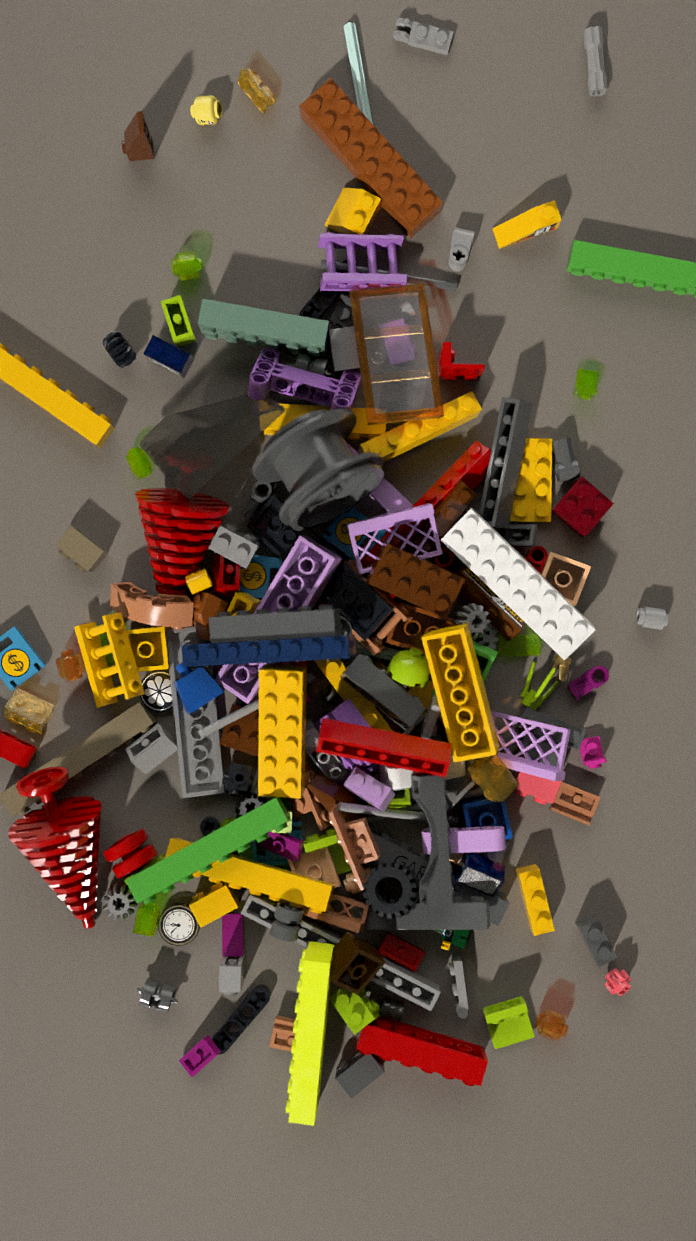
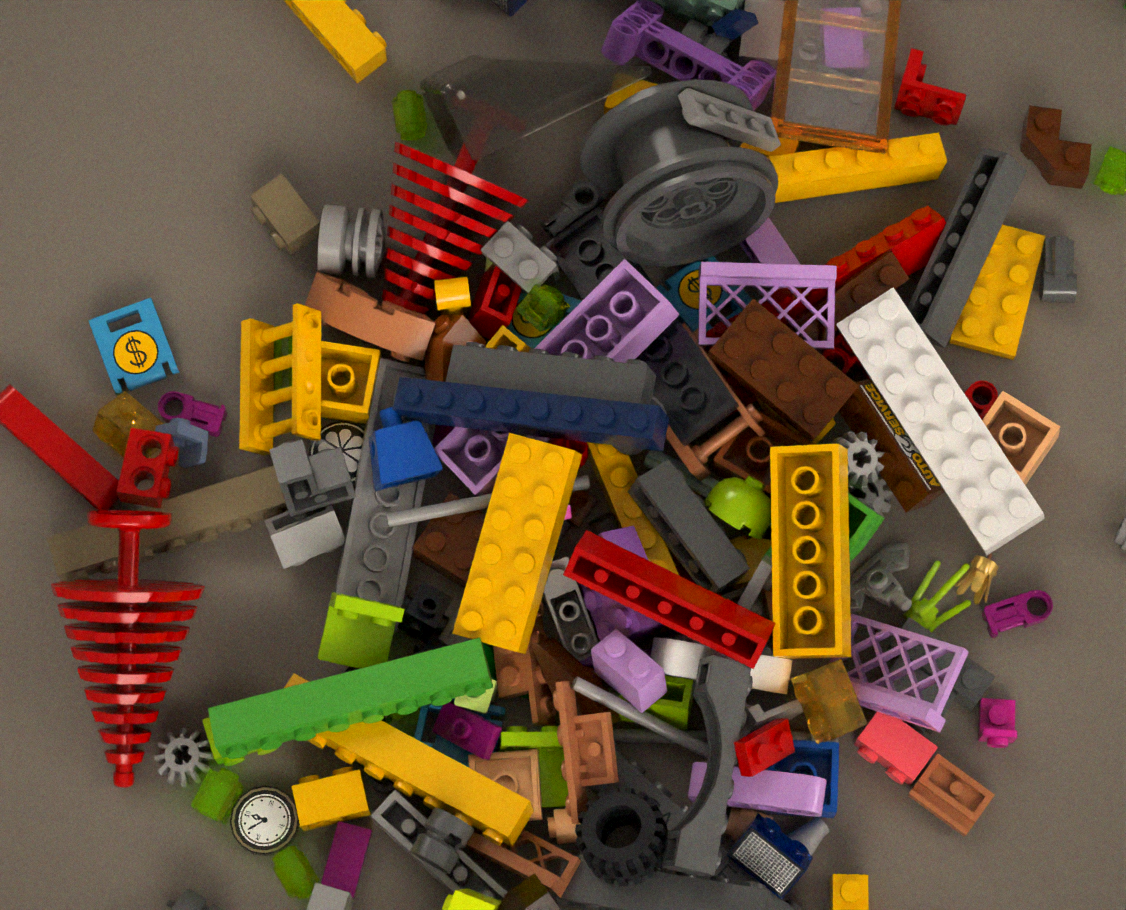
camera: 20 degrees right, 15 degrees down
(37, 739) = (138, 468): none -> red brick
(63, 690) = (197, 412): none -> magenta piece
(68, 711) = (189, 439): none -> sand blue bracket
(70, 665) = (218, 377): clear orange head -> none
(129, 851) = (223, 675): red wheel -> none
(130, 558) = (350, 241): none -> light grey wheel
(145, 723) = (313, 479): none -> dark grey brick
(202, 803) = (358, 631): none -> lime bracket
(205, 951) = (295, 872): none -> clear neon green brick
(259, 567) = (547, 303): none -> clear neon green brick
(327, 352) = (735, 24): none -> dark blue tile
(342, 431) = (728, 120): none -> light grey plate
(462, 817) = (764, 747): none -> red plate
(500, 685) = (878, 582): none -> light grey piece
(519, 646) = (920, 529): clear neon green tile -> none
(520, 534) = (964, 358): dark grey slope -> none
(547, 387) = (1059, 160): none -> reddish brown brick
(582, 507) = (1067, 344): dark red brick -> none

